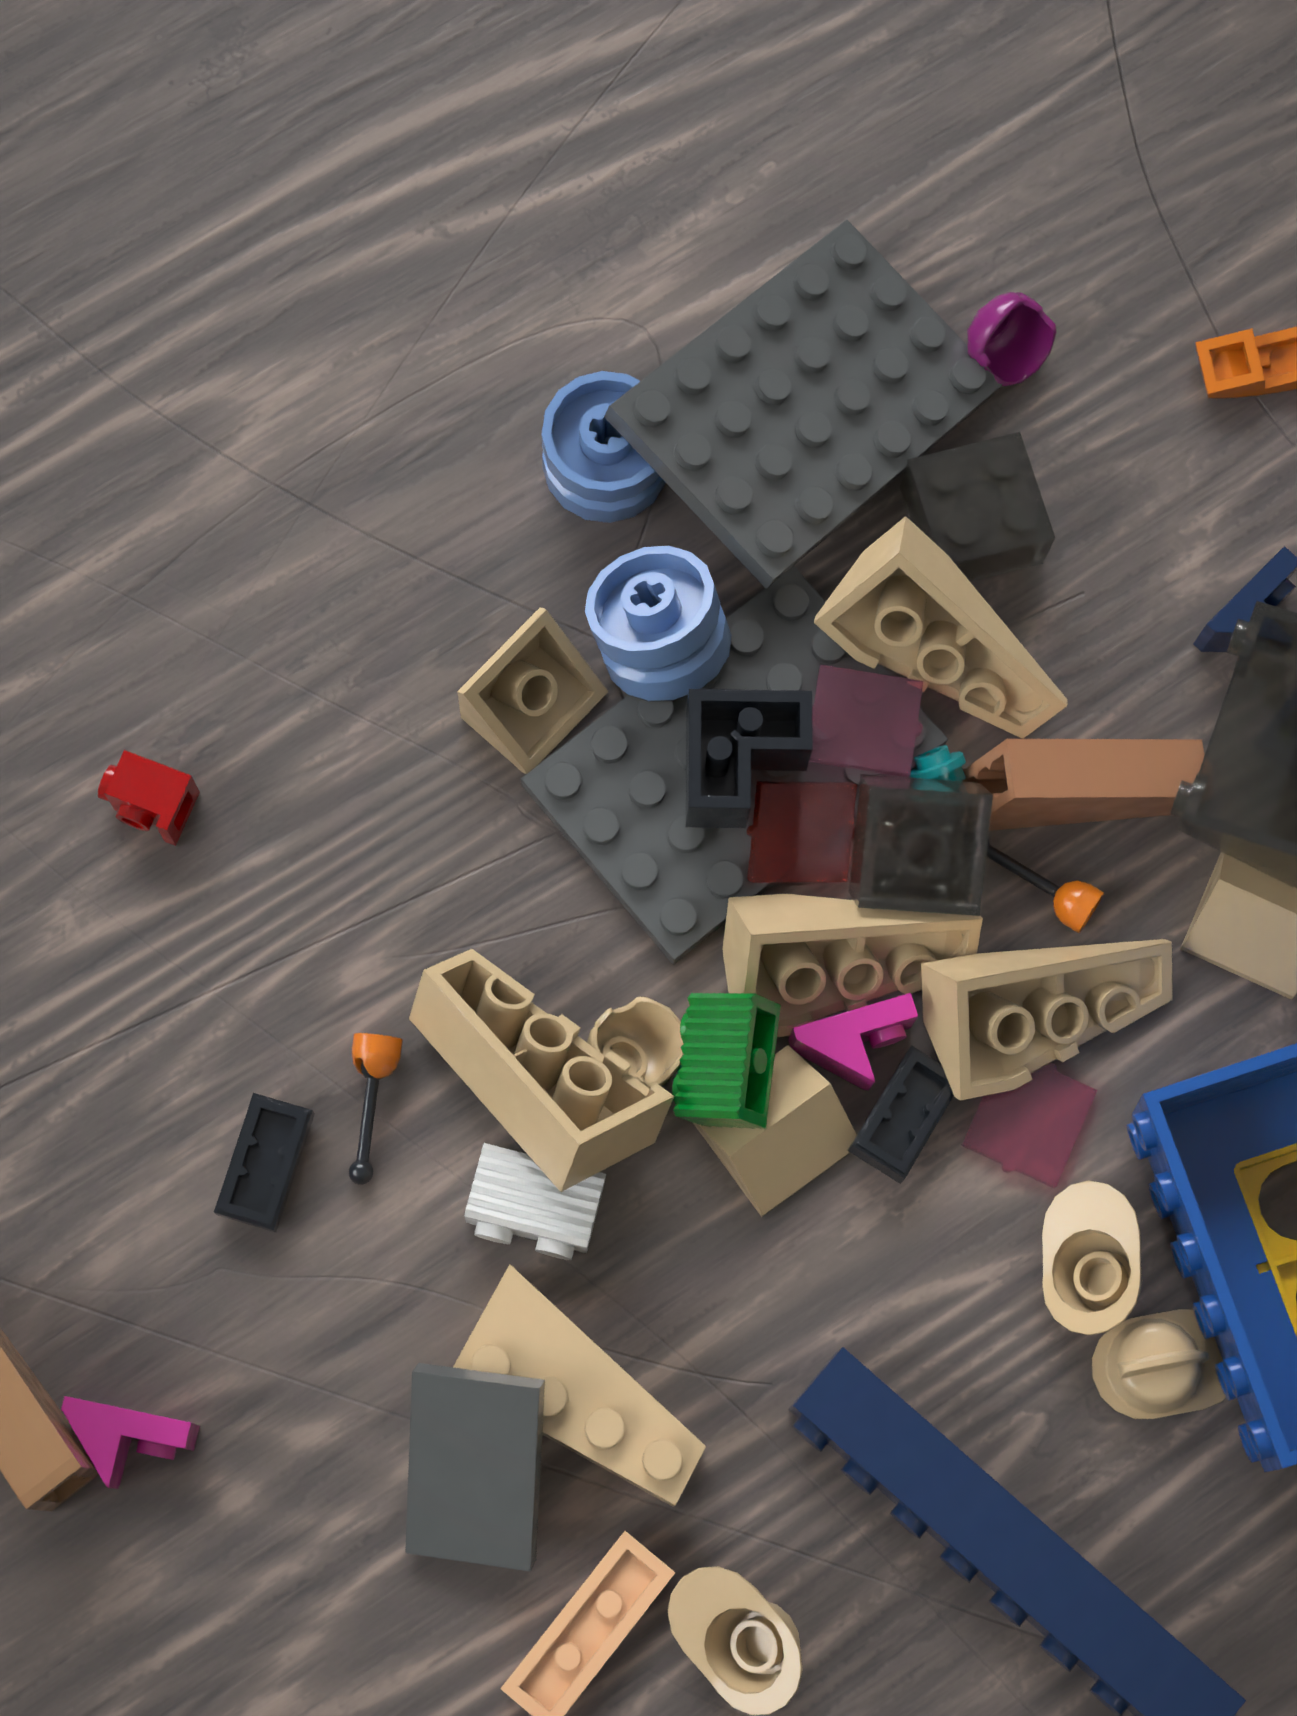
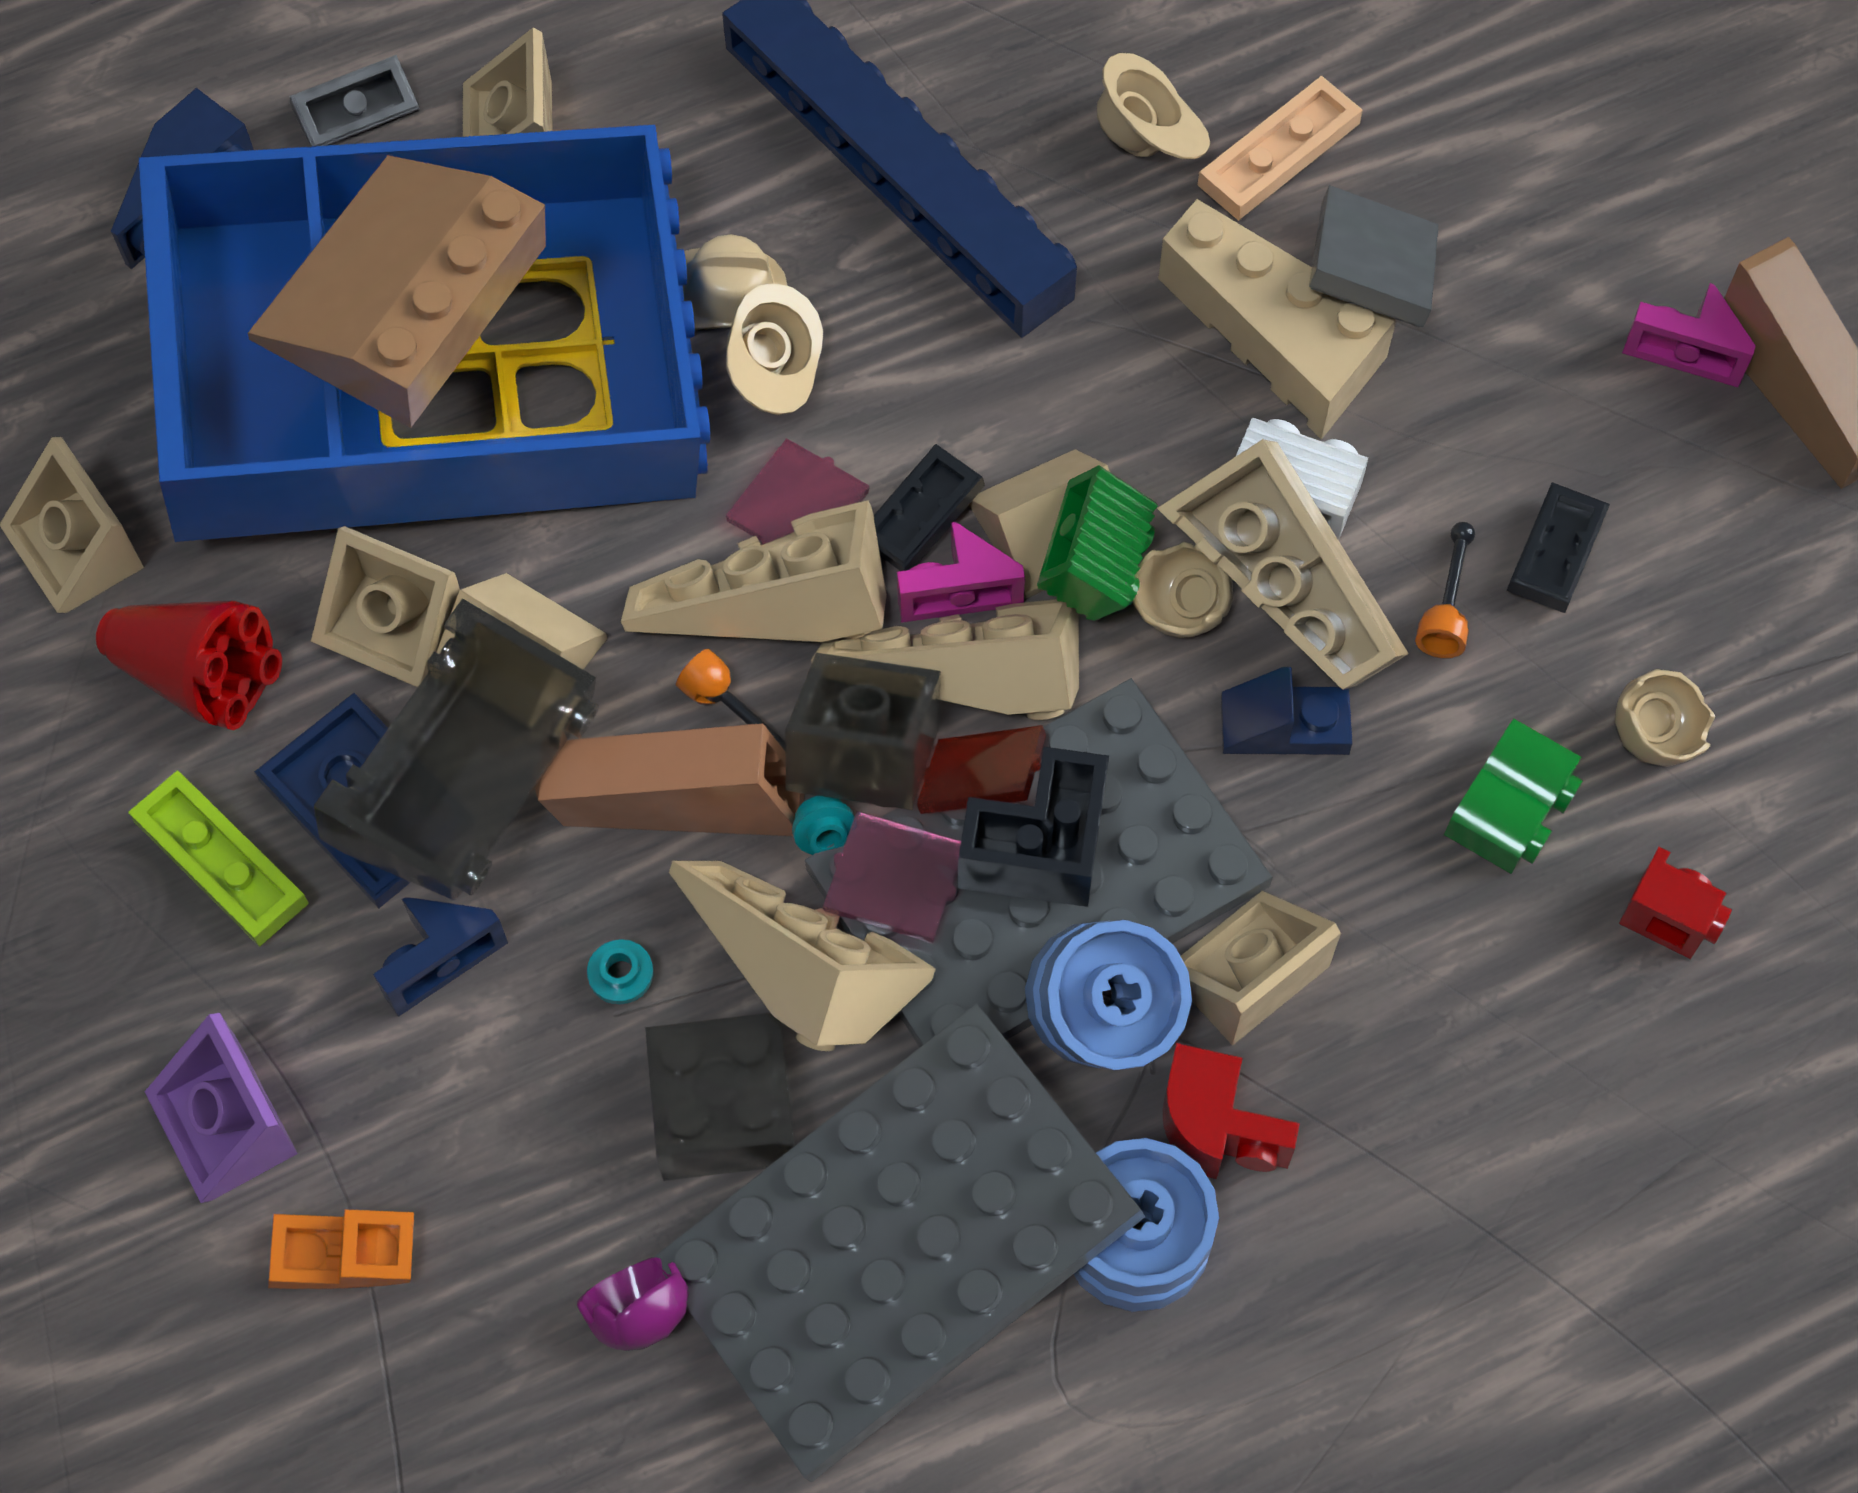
camera: 165 degrees left, 10 degrees down
(158, 974) = (1663, 718): none -> tan hair
(301, 882) = (1513, 796): none -> green brick
(527, 942) = (1282, 719): none -> dark blue slope
(557, 544) = (1205, 1125): none -> red brick
(1083, 633) = (623, 989): none -> teal plate

